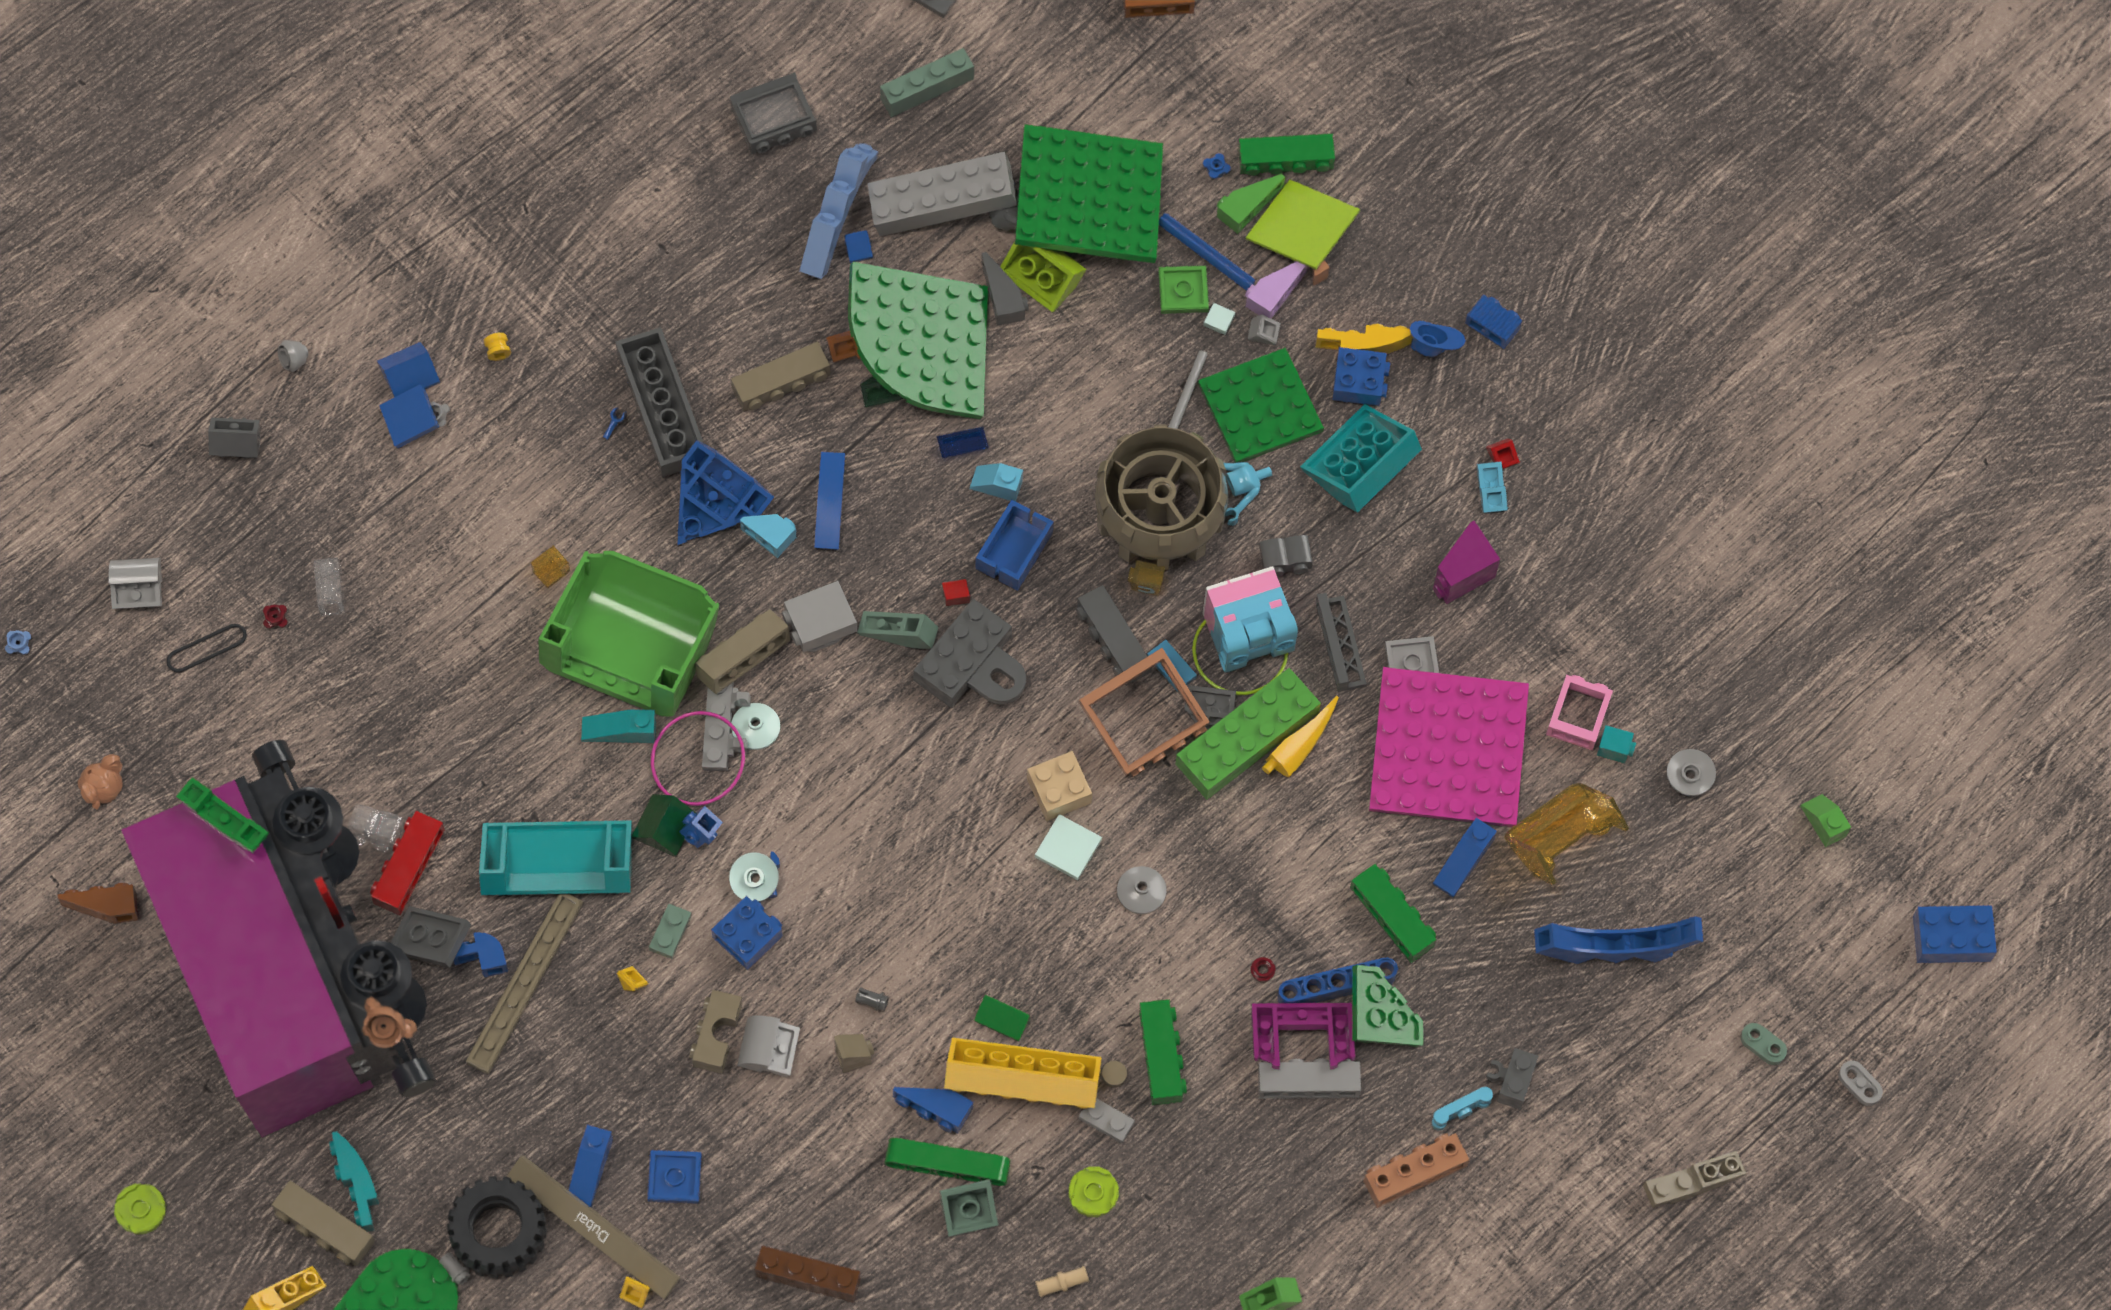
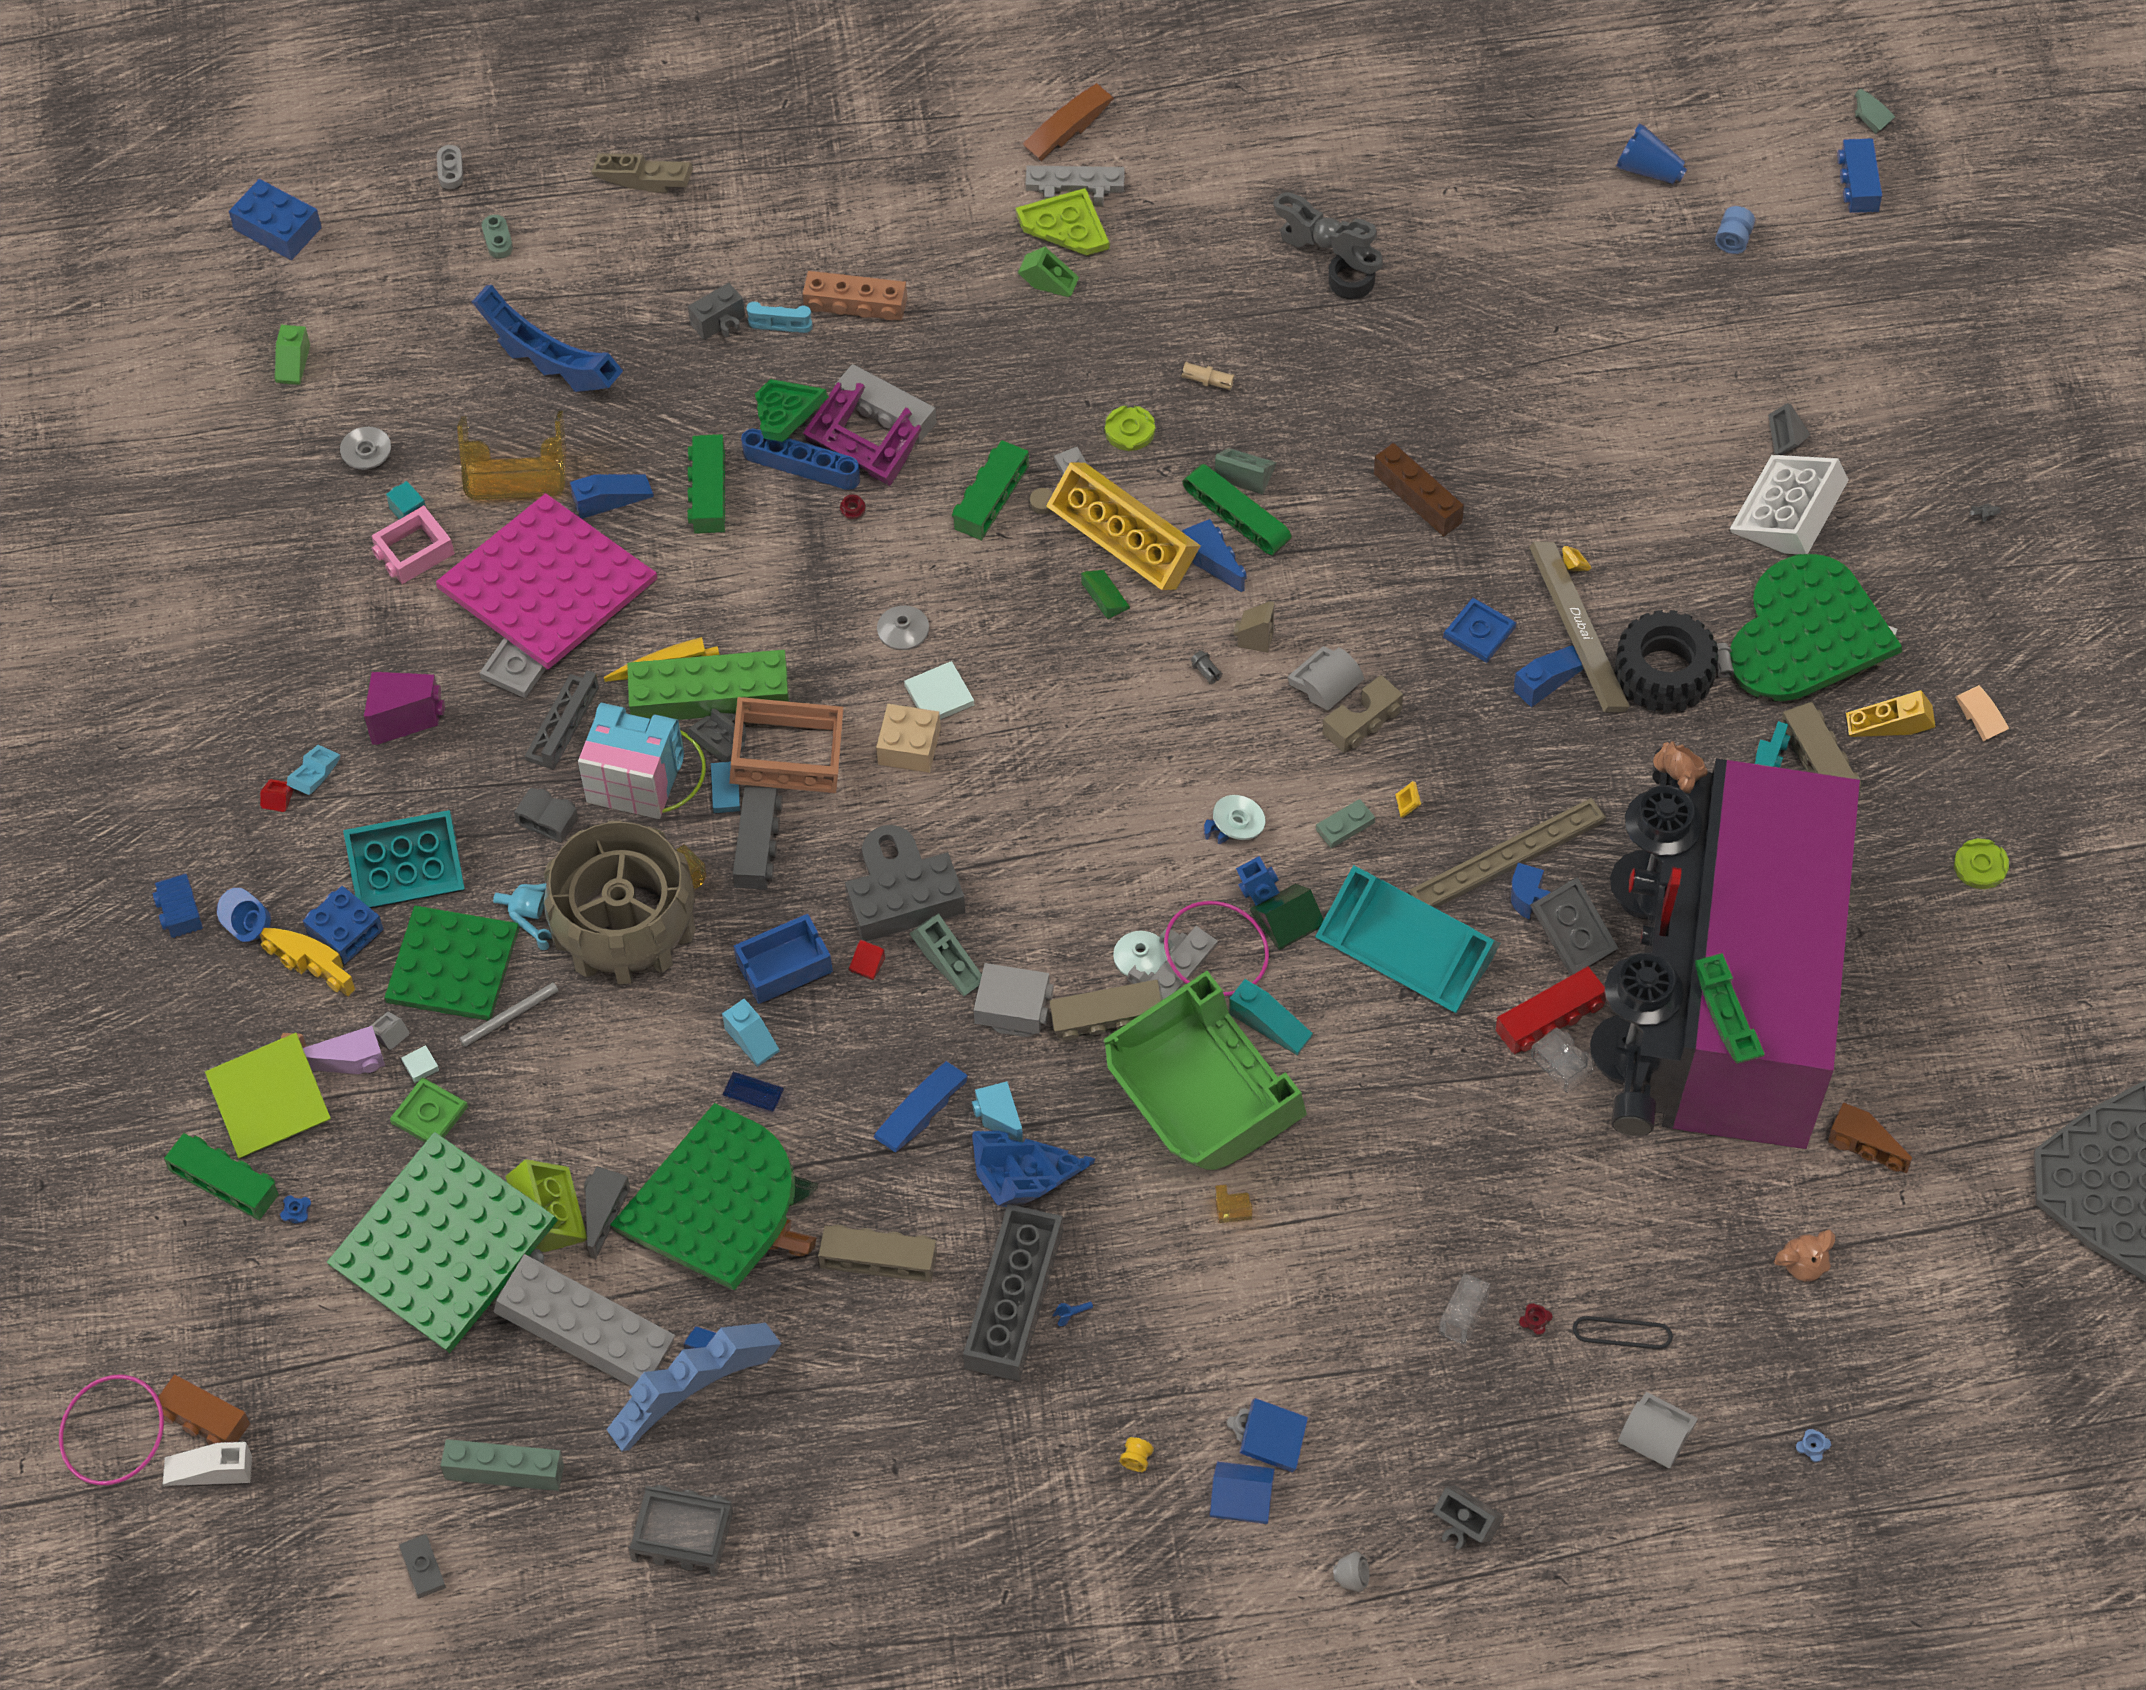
camera: 140 degrees left, 10 degrees down
(747, 932) = (1278, 773): blue brick -> none
(1206, 251) = (376, 1130): blue axle -> none
(1247, 202) = (300, 1151): bright green slope -> none

